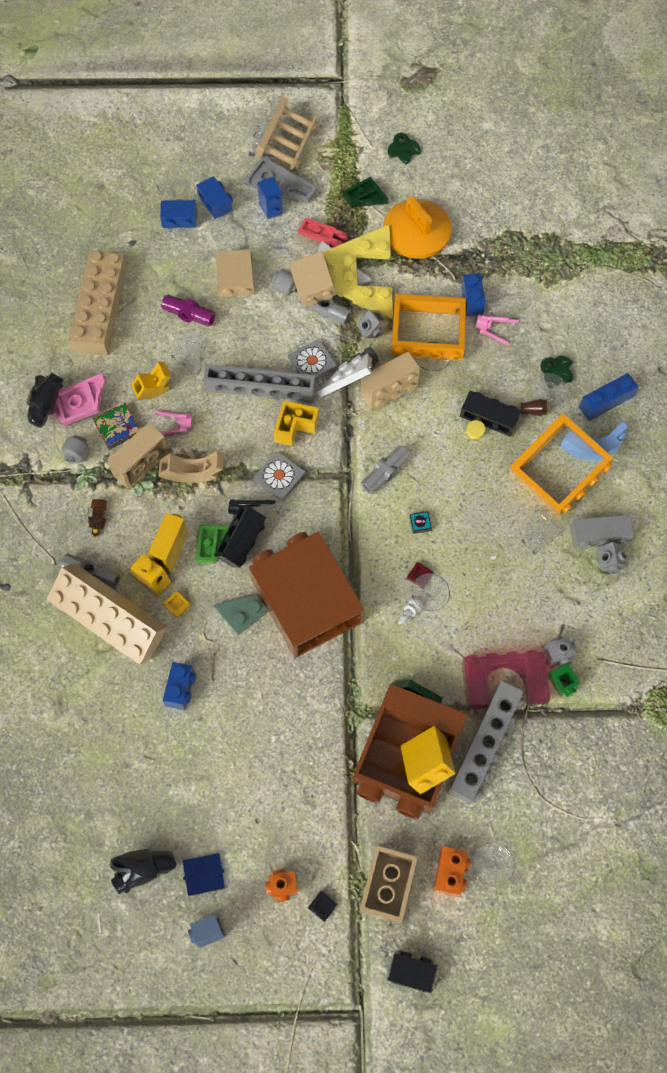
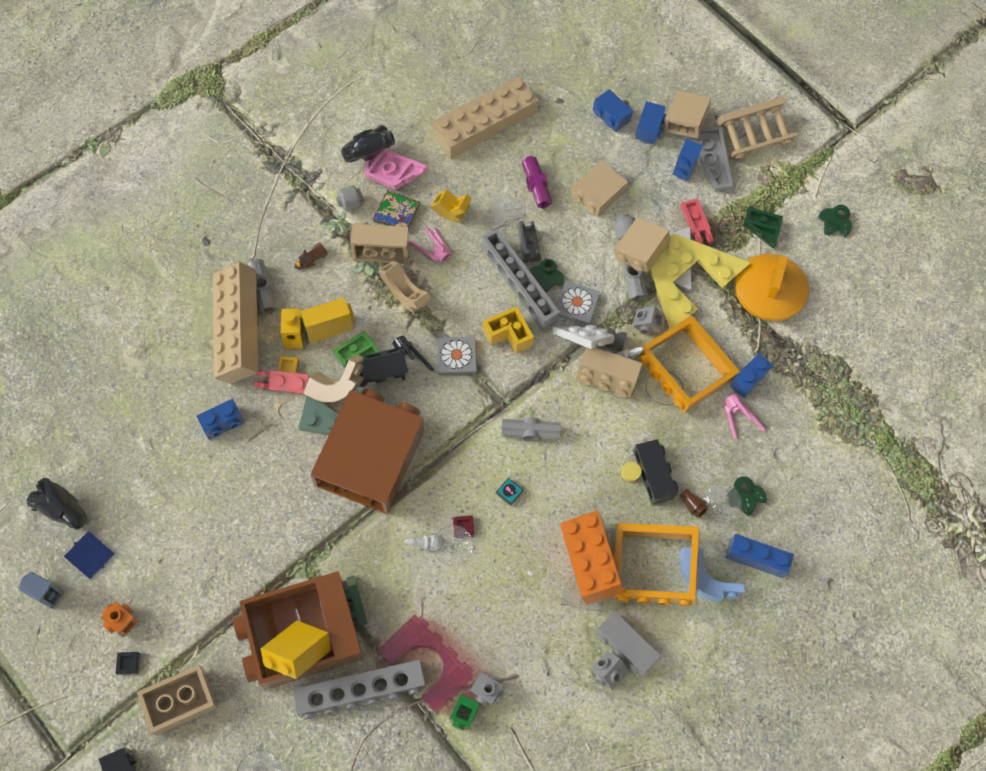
camera: 45 degrees right, 0 degrees up
(189, 614) = (283, 381): none -> coral hinge
(232, 168) = (687, 114): none -> tan brick
(232, 355) = (529, 242): none -> dark grey hinge
(233, 581) = (330, 390): none -> tan arch
(274, 361) = (545, 277): none -> dark green plate
(388, 357) = (630, 354): none -> white bar
(451, 871) = (227, 742): orange brick -> none
(523, 502) = (592, 557): none -> orange brick

